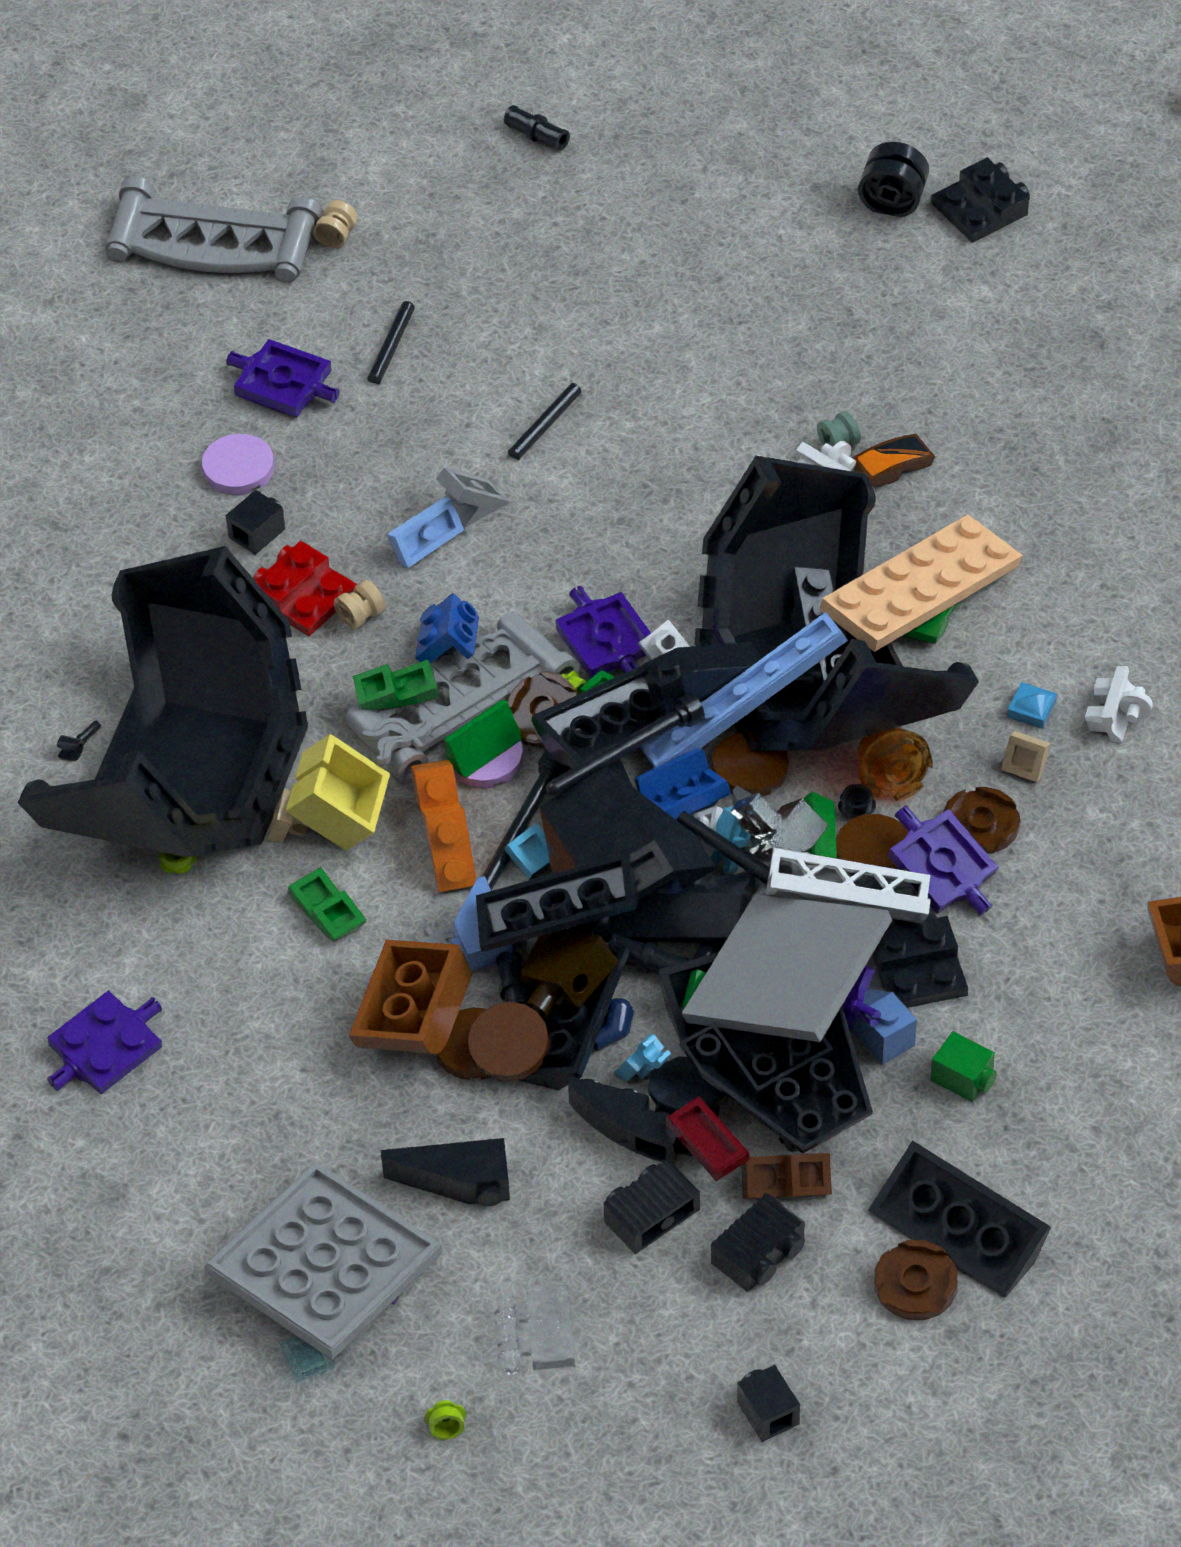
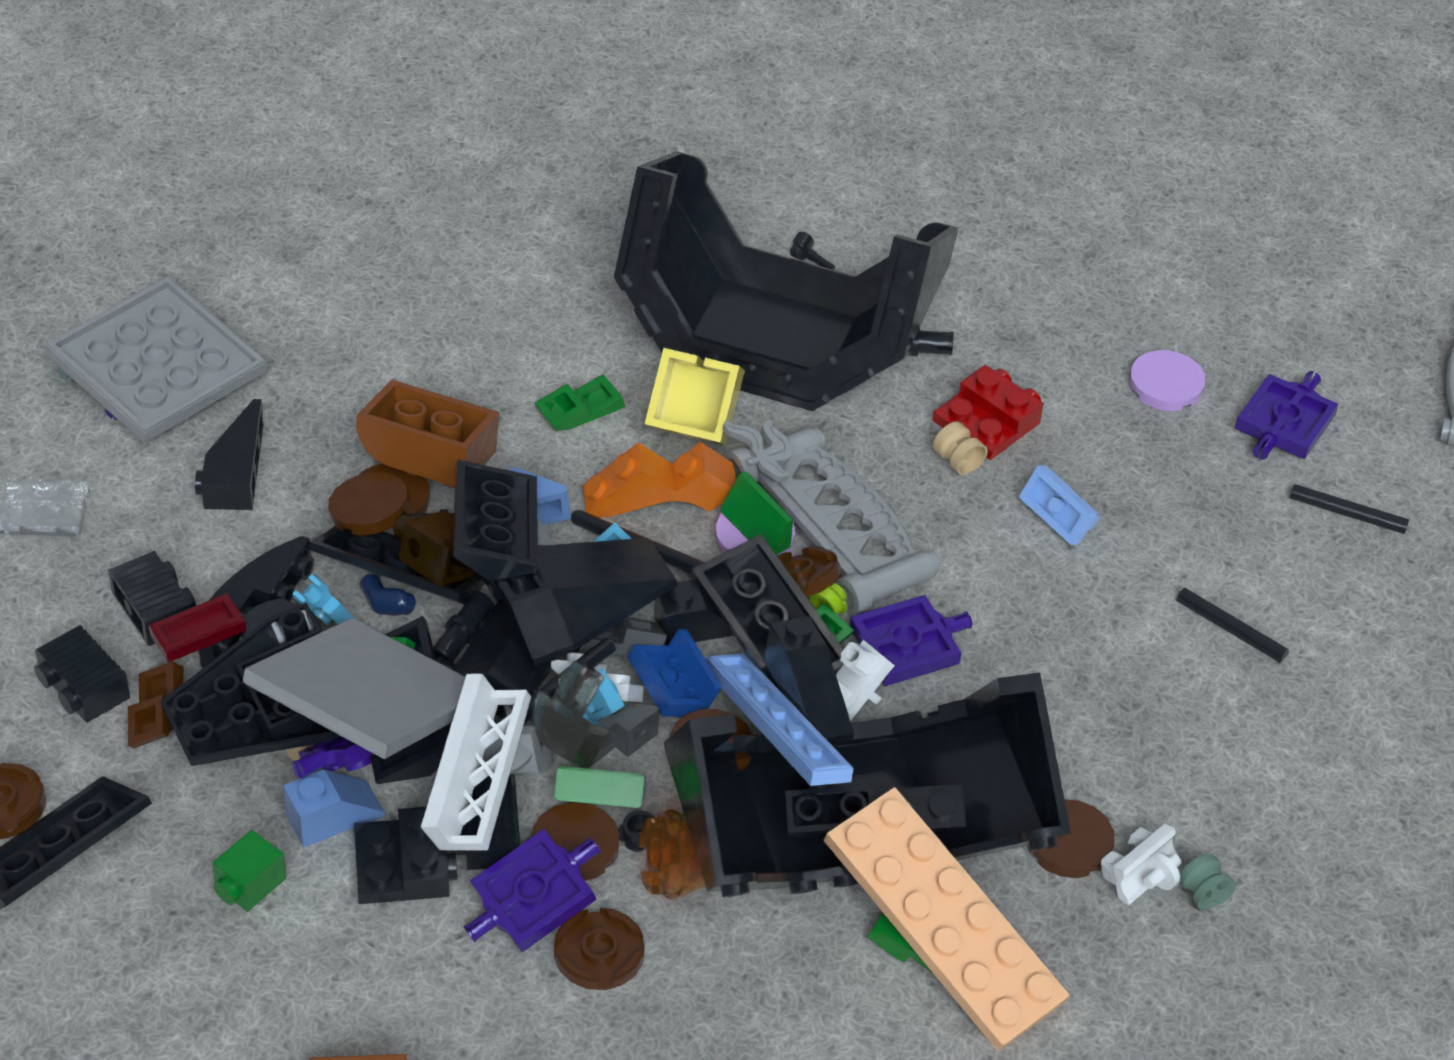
camera: 90 degrees right, 5 degrees down
(104, 1042) = (452, 252): dark purple plate -> none
(255, 522) = (1077, 380): black brick -> none
(388, 689) = (837, 457): green slope -> none
(445, 626) = (908, 507): blue bracket -> none
(471, 495) = (1112, 541): light grey slope -> none
(685, 712) = (753, 661): black piece -> none
(888, 459) = (1169, 934): slope -> none
(1025, 756) = (678, 997): tan tile -> none
(1032, 705) = (765, 1024): dark azure tile -> none

